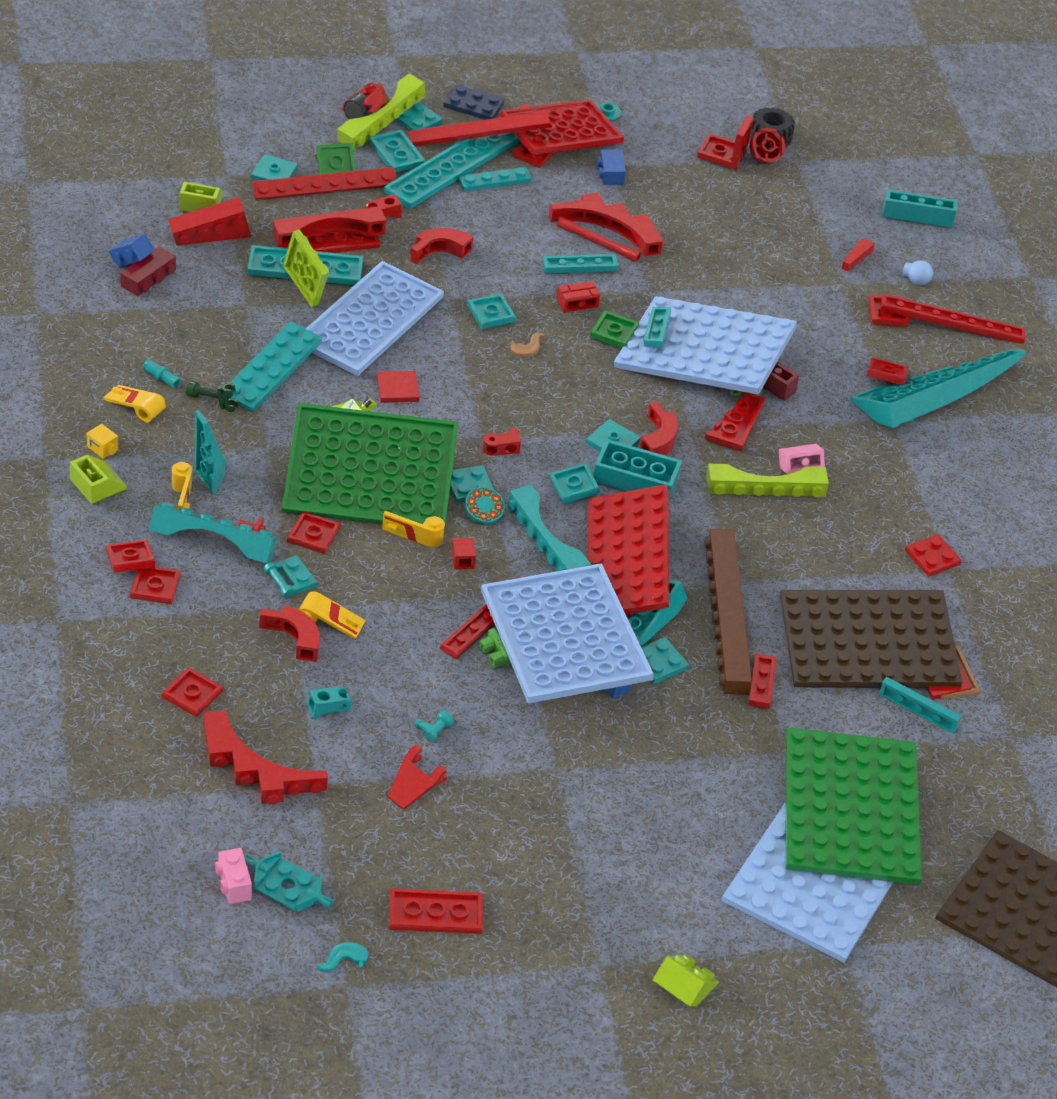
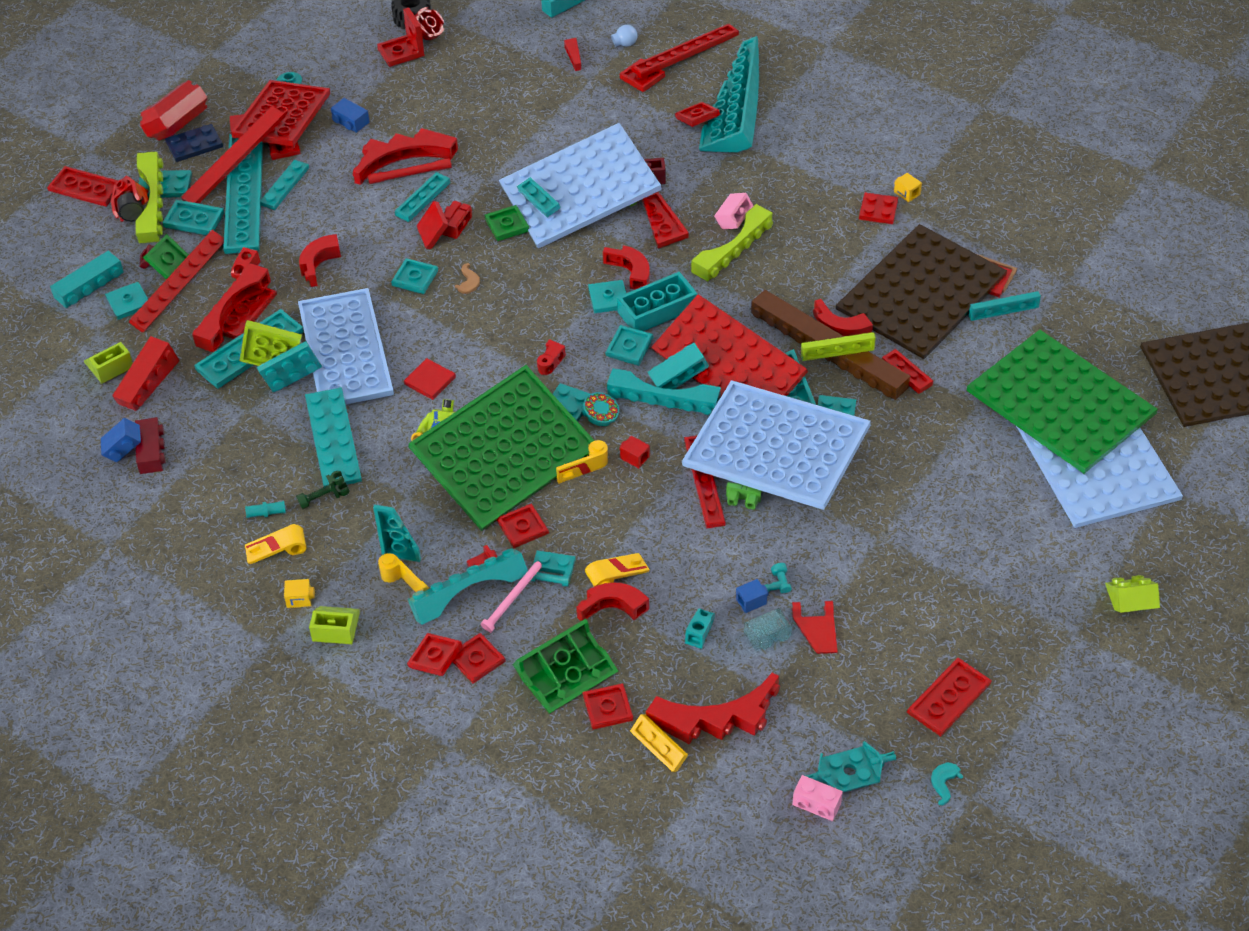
camera: 40 degrees left, 5 degrees up
(187, 743) = (659, 743): none -> yellow plate
(201, 639) = (565, 667): none -> green piece
(242, 565) = (489, 624): none -> bright pink bar
(265, 135) = (87, 279): none -> teal brick
(304, 294) = (289, 366): none -> teal plate
(354, 71) = (83, 186): none -> red tile
(373, 746) = (768, 629): none -> clear light blue brick
(396, 716) = (751, 595): none -> blue brick
(483, 66) = (173, 111): none -> red brick
(552, 285) = (432, 225): none -> red tile
(579, 525) = (679, 368): none -> teal brick
(721, 610) = (837, 346): none -> lime plate
(758, 610) = (845, 326): none -> red arch
(980, 559) = (907, 187): none -> yellow brick

